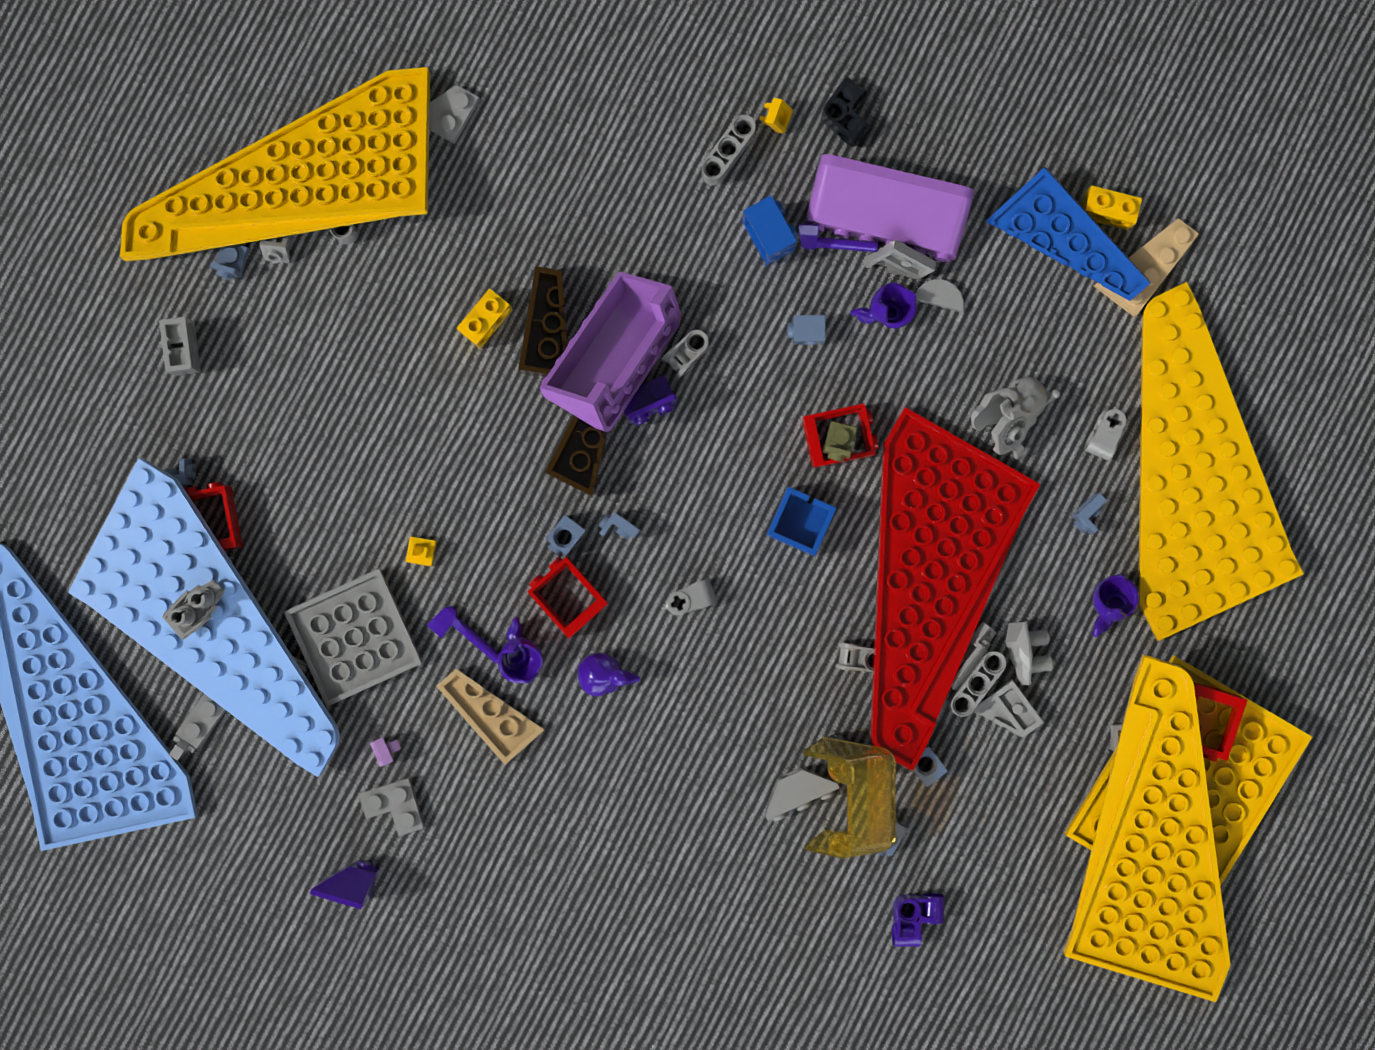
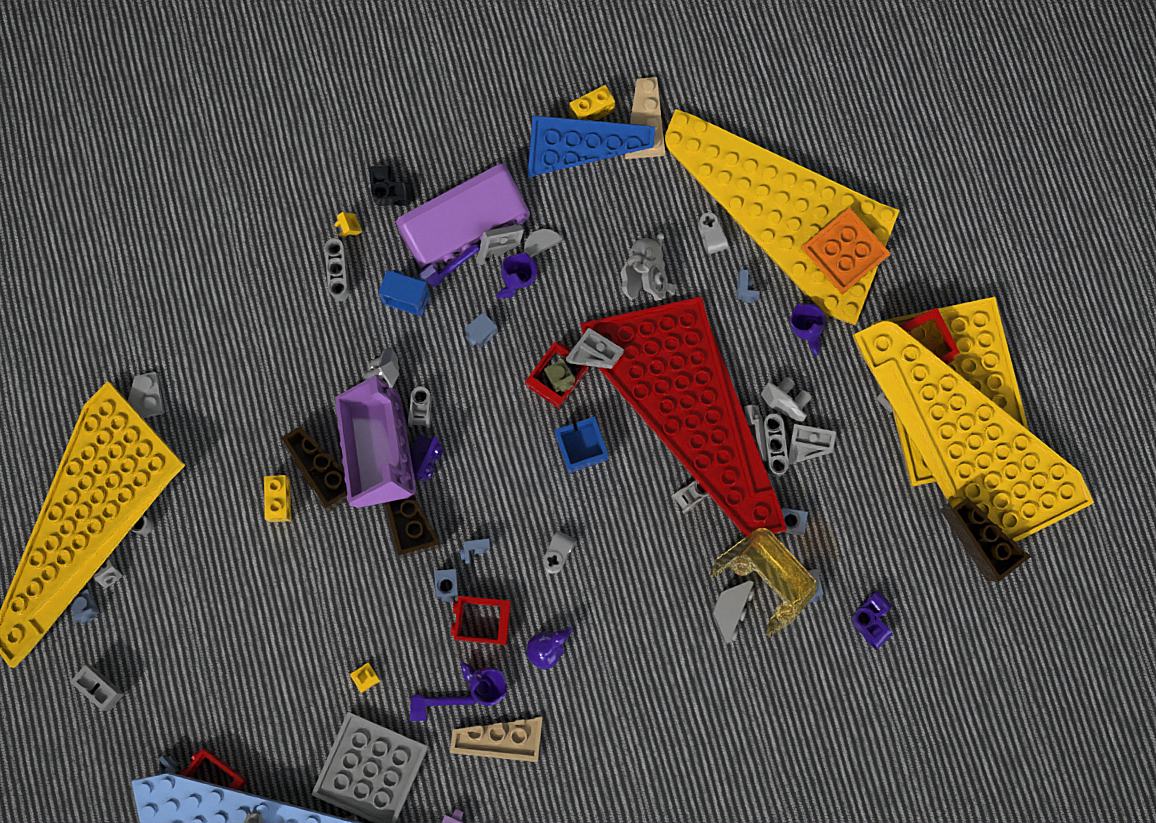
camera: 45 degrees left, 10 degrees down
(687, 285) = (384, 367): none -> light grey connector
(893, 447) = (595, 351): none -> light grey wing
(1081, 947) = (984, 541): none -> dark brown wedge
(1215, 566) = (845, 251): none -> orange plate

